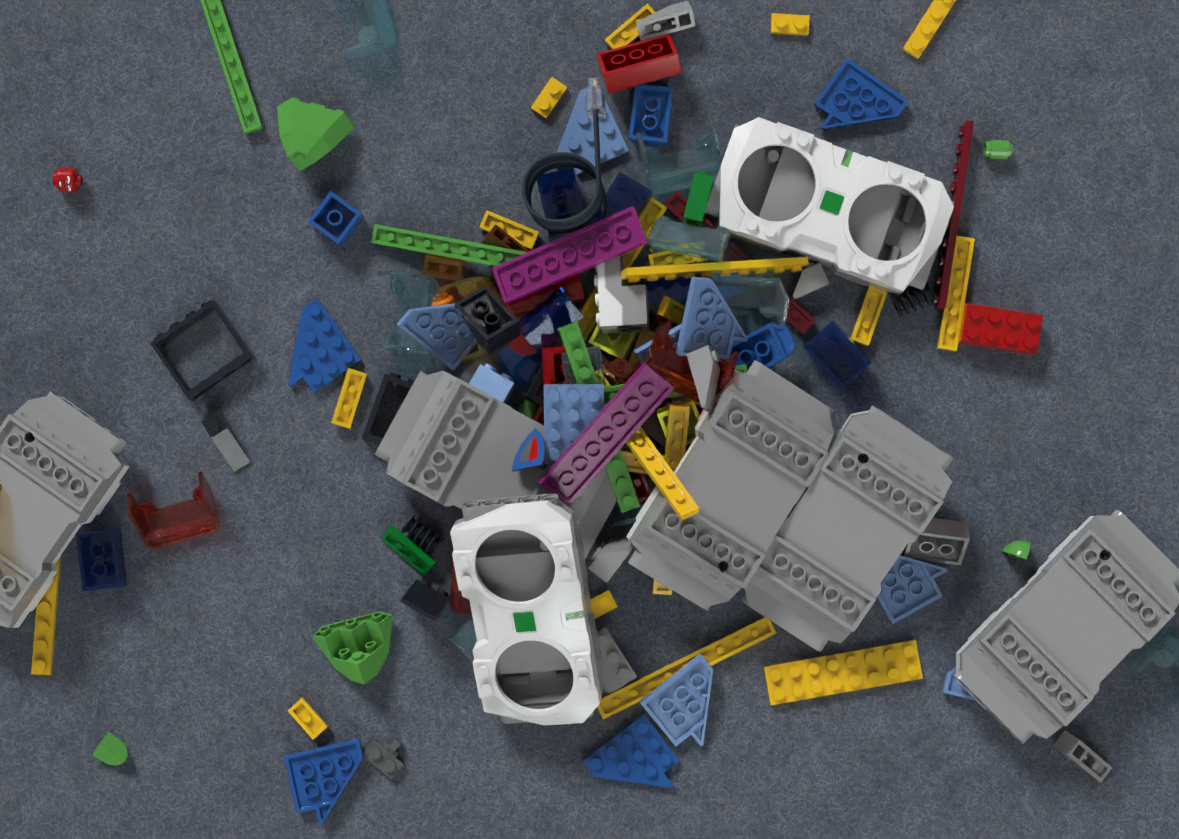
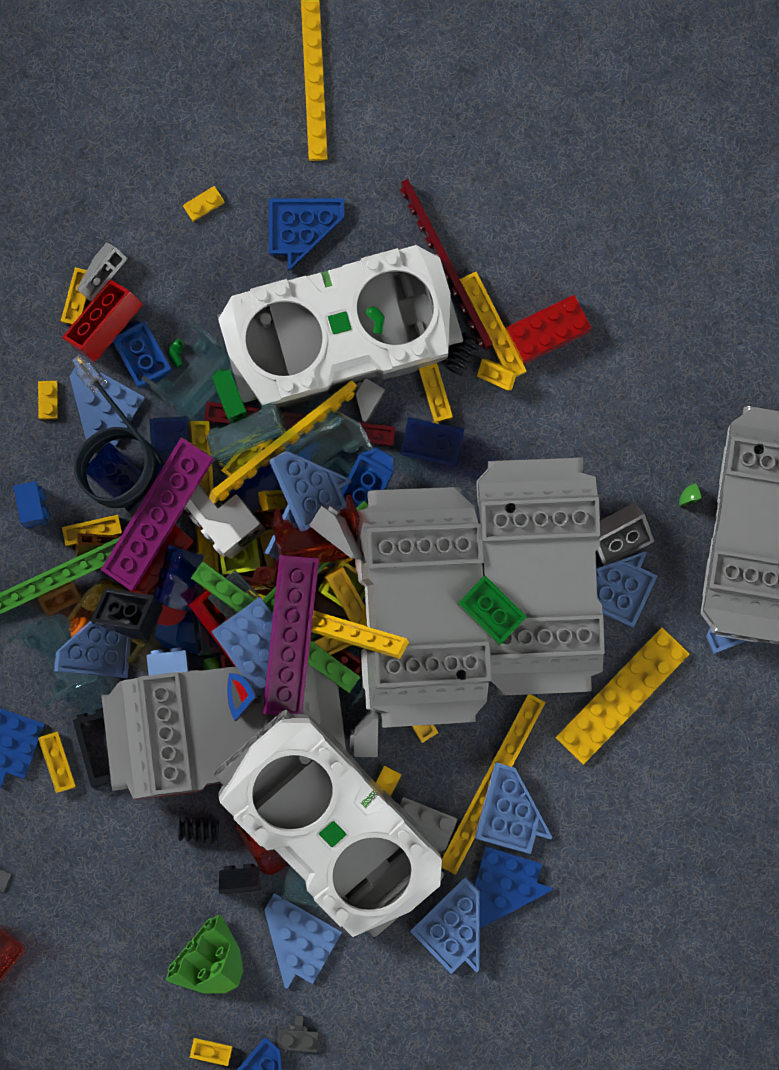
camera: 40 degrees left, 5 degrees down
(408, 550) = (195, 852): green plate -> none
(441, 680) = (299, 940): none -> medium blue wing
(474, 174) = (31, 505): none -> blue brick
(570, 761) = (453, 928): none -> medium blue wing
(679, 131) = (175, 351): none -> green arm
(786, 531) = (492, 610): none -> green plate
(866, 221) = (377, 317): none -> green arm
(930, 336) = (496, 374): none -> yellow plate
(997, 149) = (443, 187): bright green brick -> none

